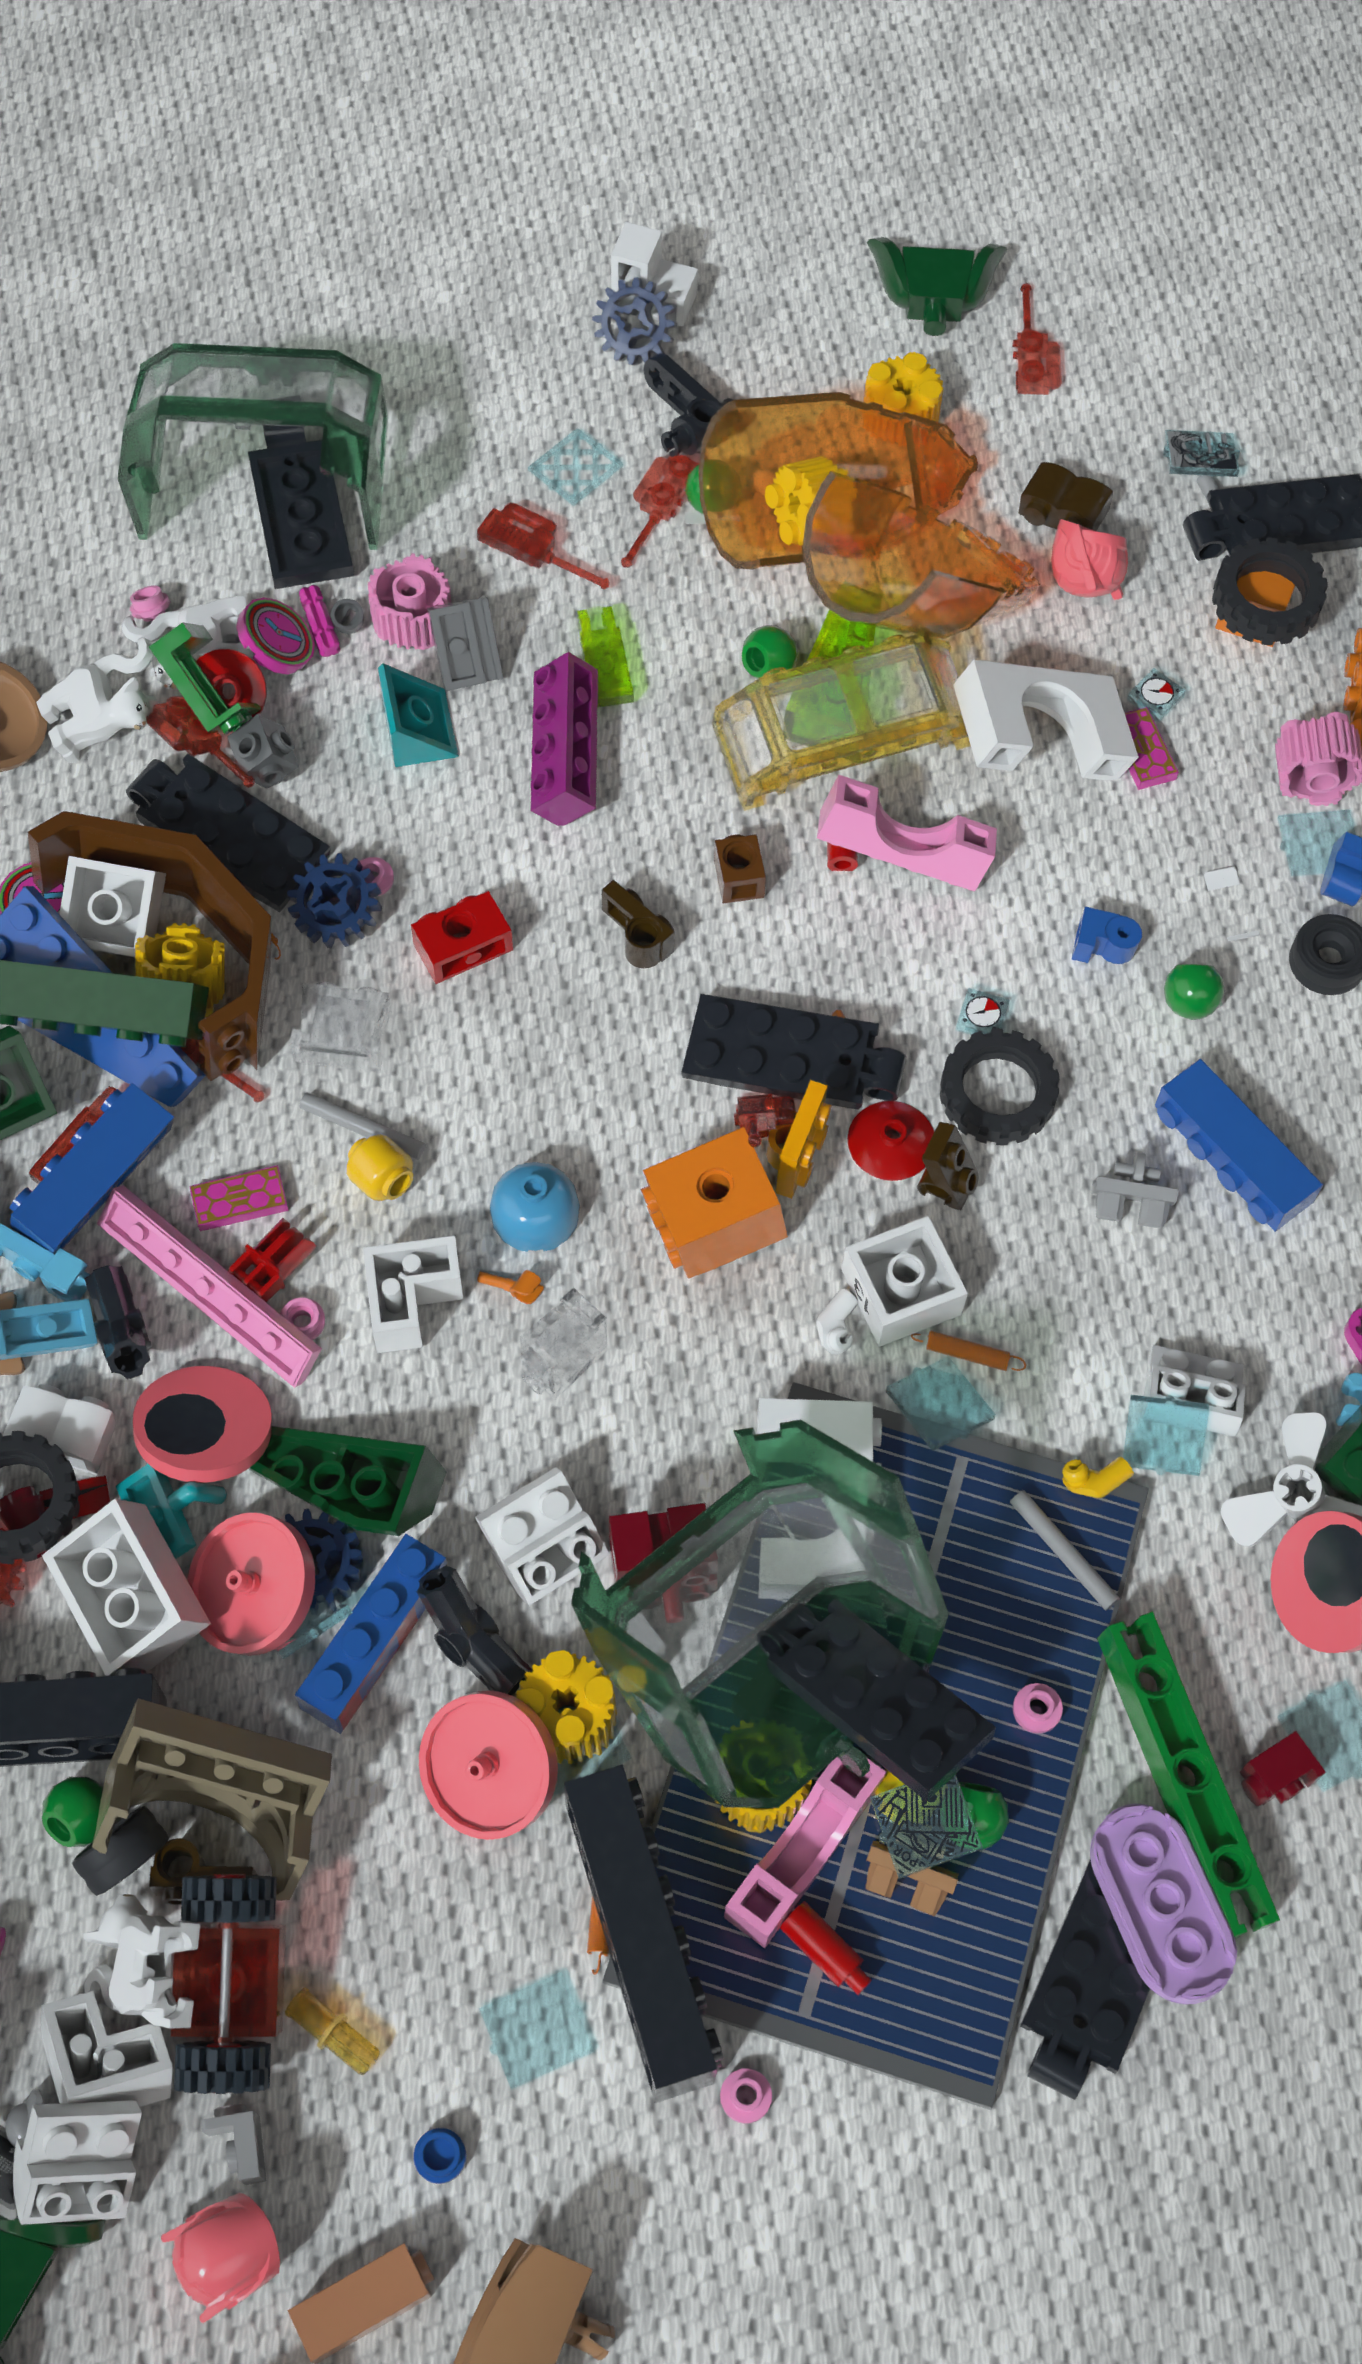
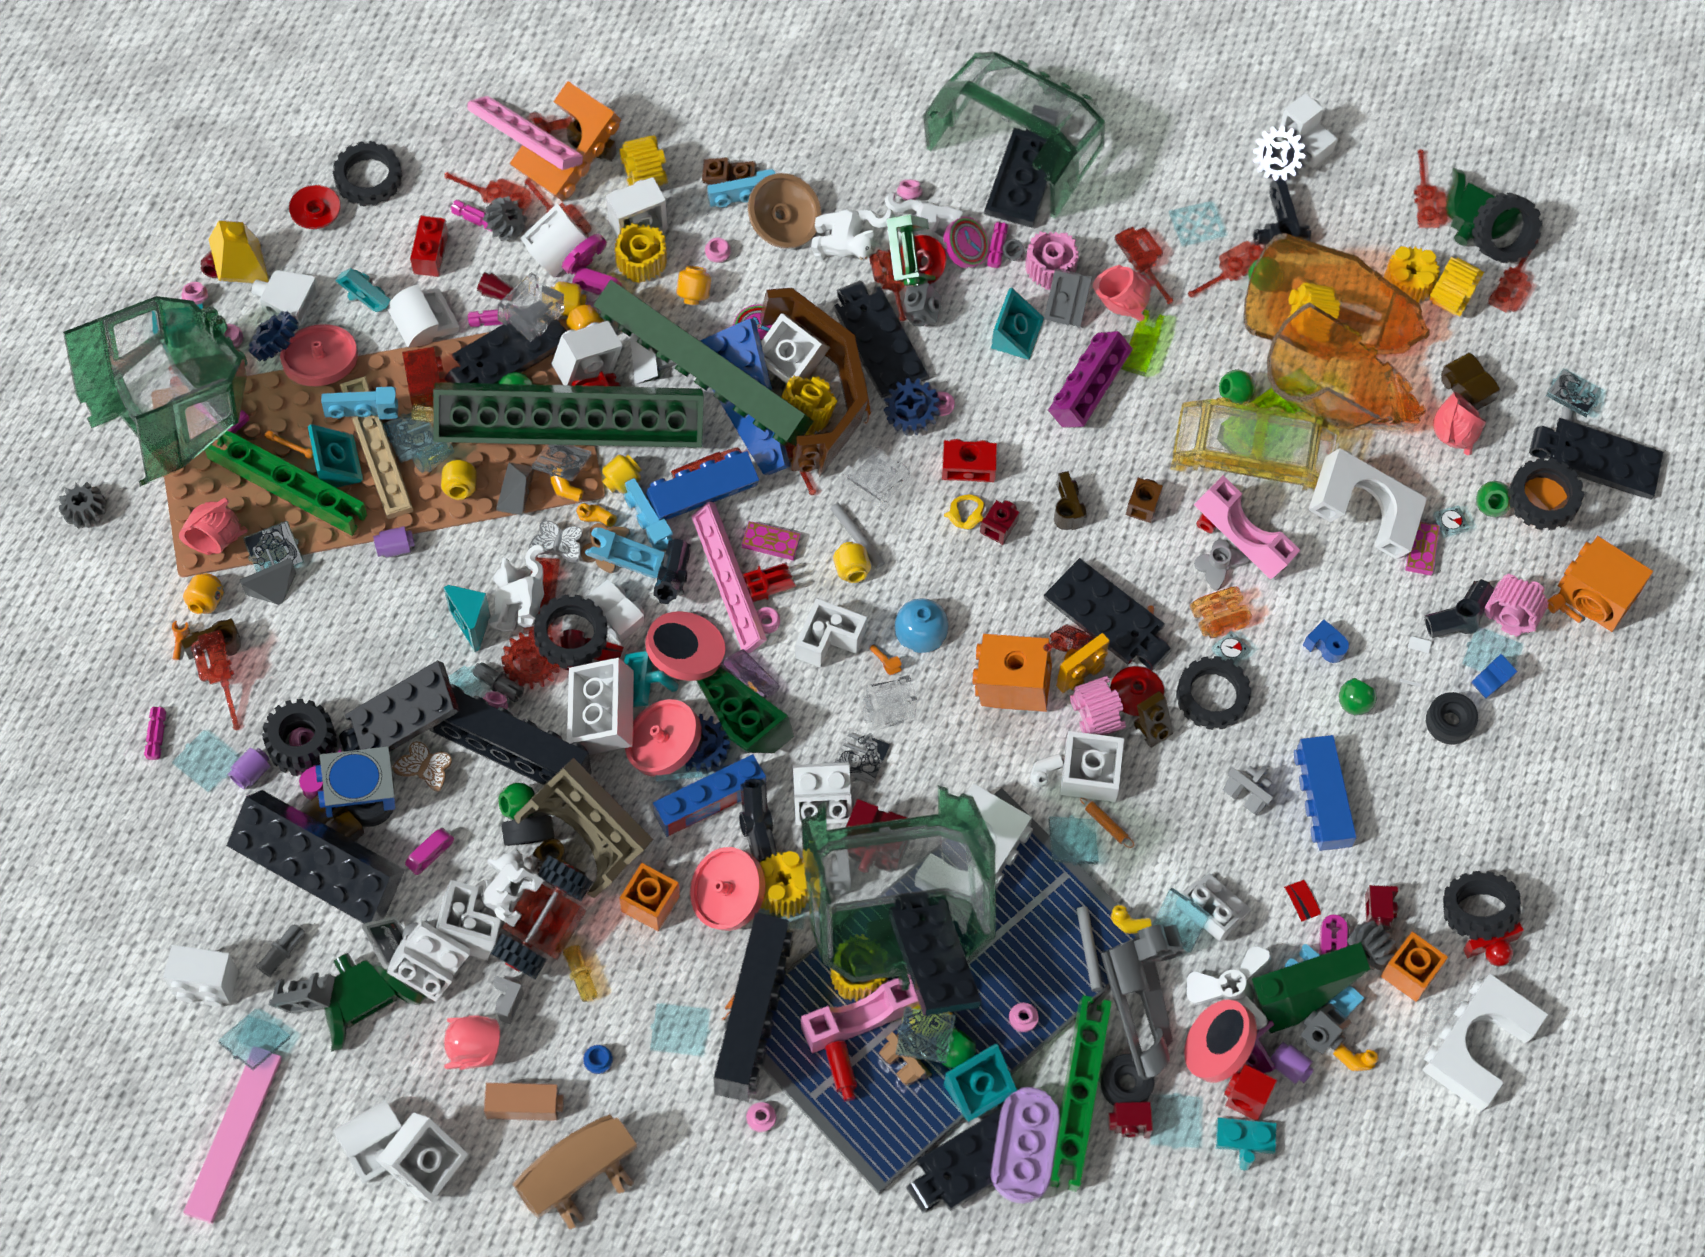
camera: 30 degrees right, 0 degrees up
(326, 1411) = (751, 673): none -> clear purple plate
(373, 1846) = (649, 897): none -> orange head
(517, 1017) = (973, 519): none -> yellow piece
(537, 597) = (1124, 291): none -> coral helmet
(556, 999) = (1000, 528): none -> dark red brick
(563, 1440) = (864, 755): none -> piece
(861, 1191) = (1098, 707): none -> bright pink brick
(870, 314) = (1425, 197): none -> clear red piece
(891, 904) = (1218, 562): none -> light grey animal
(943, 990) = (1215, 624): none -> clear orange brick
(961, 287) = (1527, 237): none -> black tyre
(970, 385) = (1456, 286): none -> yellow brick
(1042, 1848) = (980, 1083): none -> teal slope
(1151, 1554) = (1133, 969): none -> dark grey panel
(1196, 636) = (1493, 499): none -> green piece
(1253, 1695) = (1110, 1085): none -> black tyre
(1258, 811) = (1465, 615): none -> black piece
(1299, 1313) = (1303, 900): none -> red sticker

